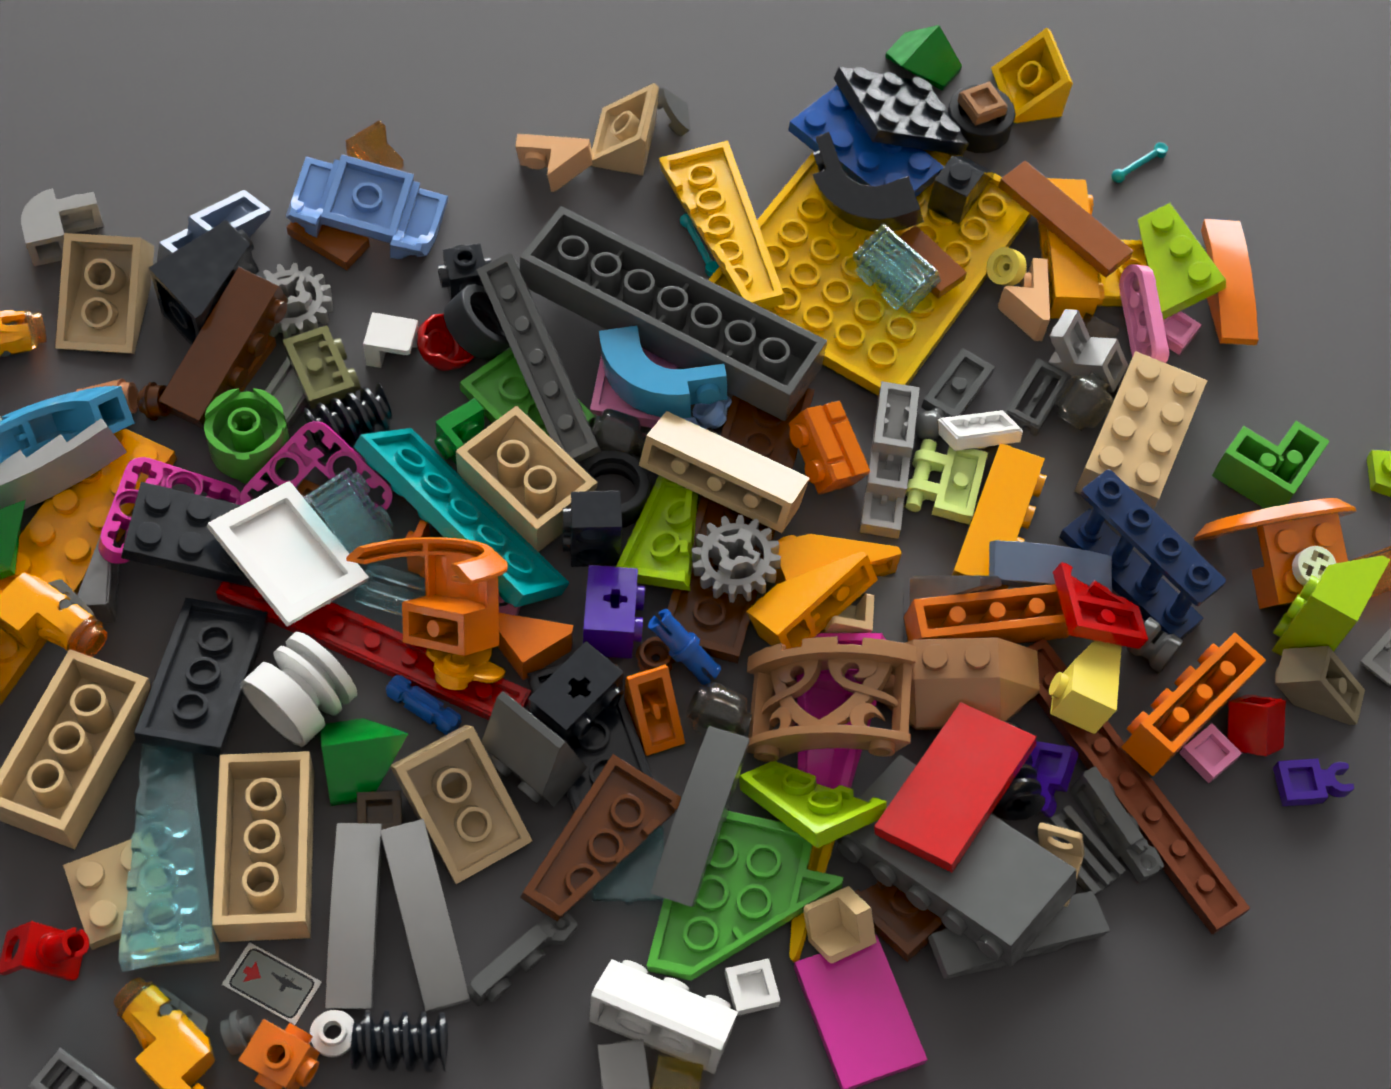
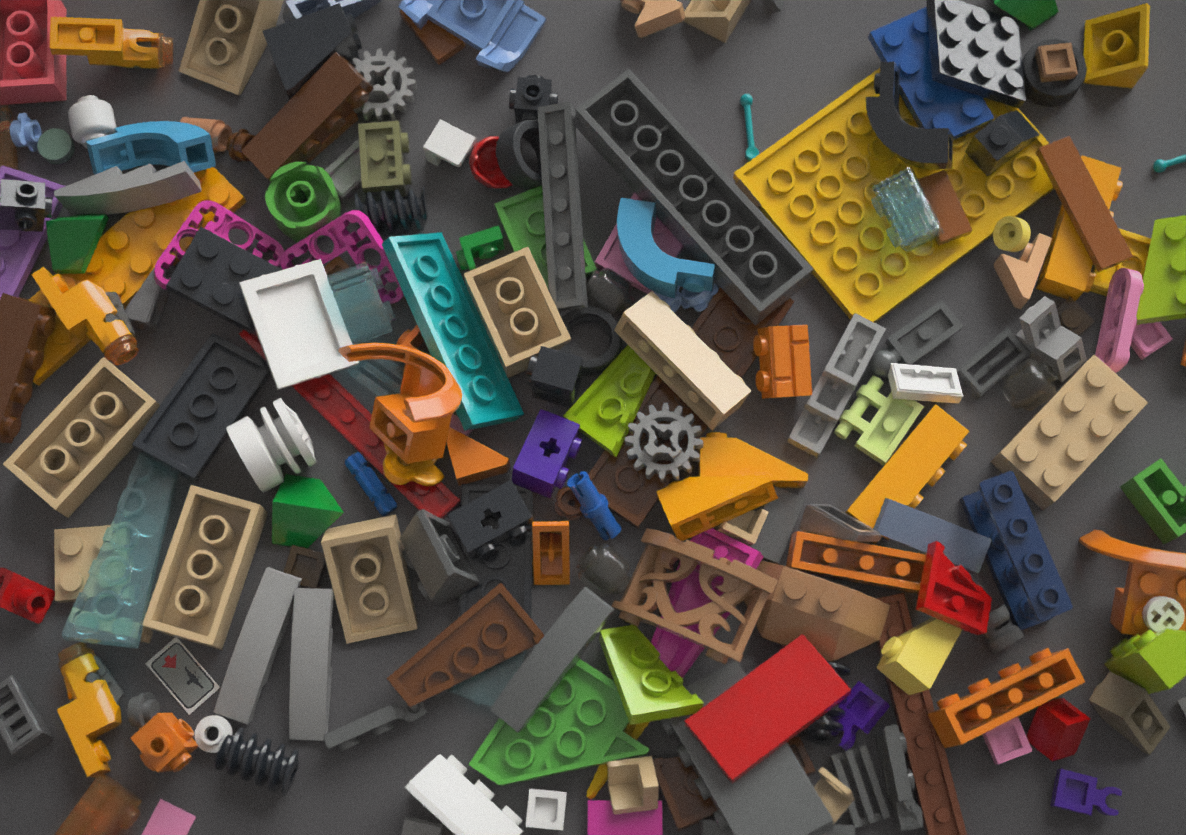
camera: 25 degrees right, 15 degrees up
(721, 211) = (775, 96): yellow wing -> none

